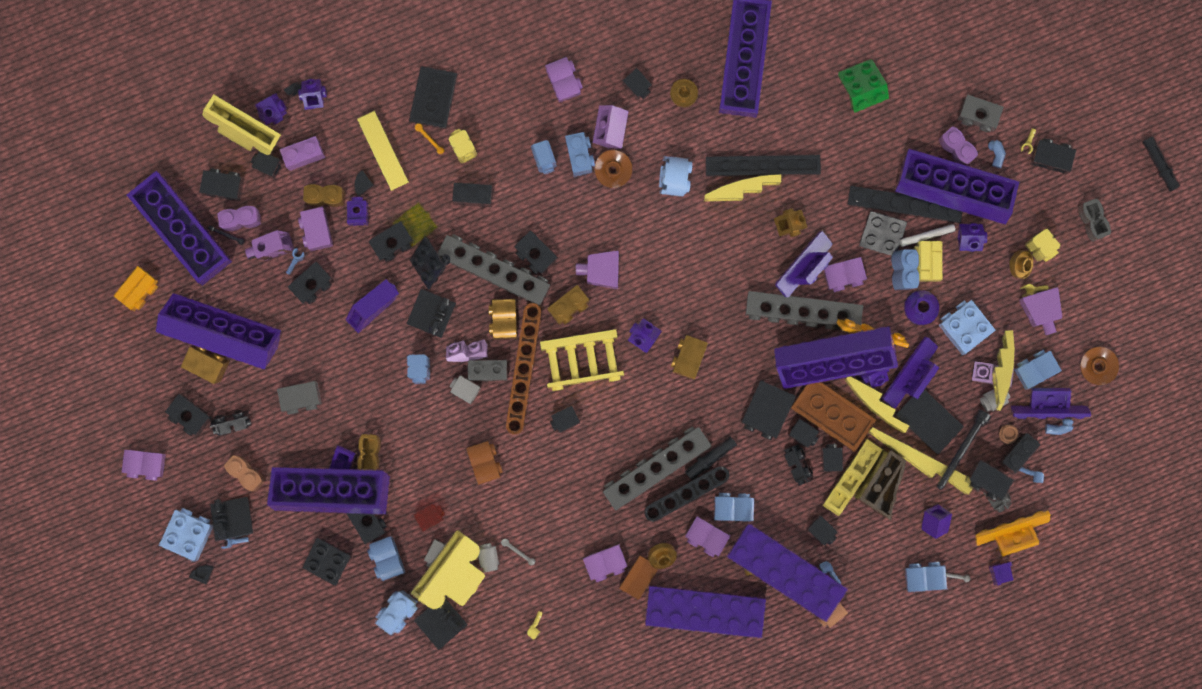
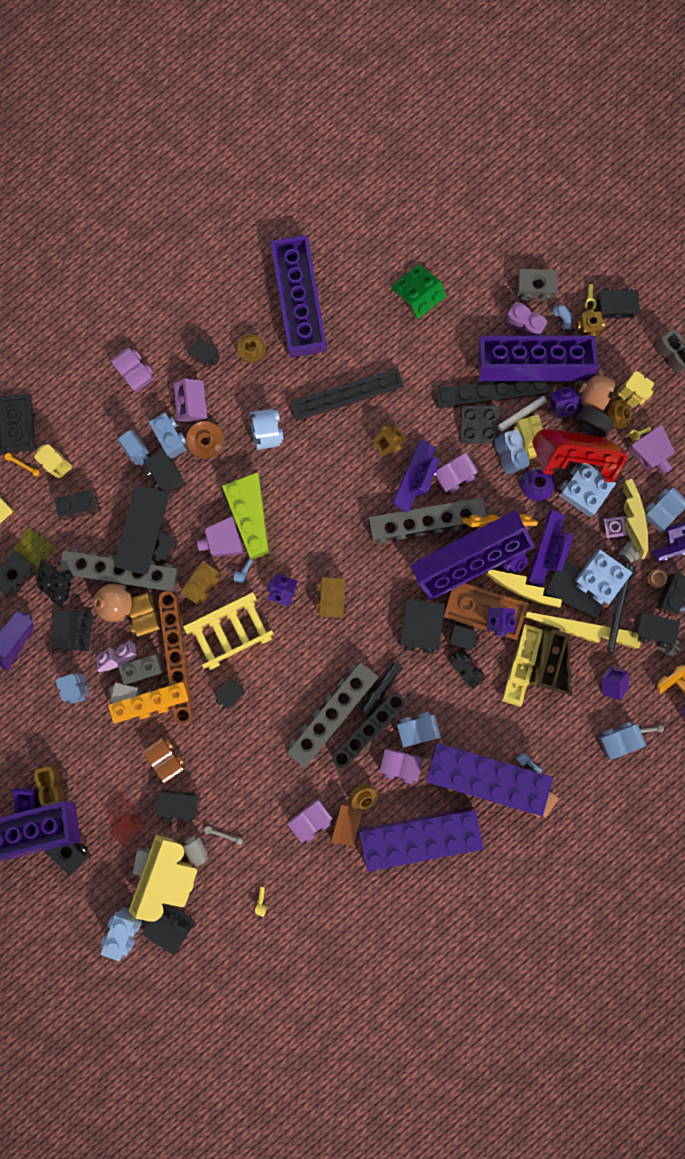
camera: 20 degrees left, 0 degrees up
(326, 561) = (40, 901): black hinge -> none
(386, 558) = (97, 882): medium blue brick -> none
(479, 299) = (112, 602): none -> nougat cylinder
(484, 509) = (178, 805): none -> black brick
(486, 404) = (142, 705): none -> light orange bracket
(527, 237) = (141, 530): none -> black piece
(565, 189) = (164, 472): none -> black brick
(607, 311) = (240, 577): none -> medium blue hand
(634, 249) = (248, 510): none -> lime wedge
(735, 190) = (327, 426): light yellow slope -> none
(822, 531) = (509, 725): black brick -> none
(831, 458) = (497, 653): black brick -> none
(844, 428) = (501, 620): none -> dark purple brick
(951, 279) = (559, 447): none -> red windscreen
(954, 416) = (602, 577): none -> light blue brick
(993, 264) = (594, 421): none -> black tyre
(1003, 237) = (596, 391): none -> nougat cylinder
(1015, 173) = (584, 323): none -> pearl gold brick

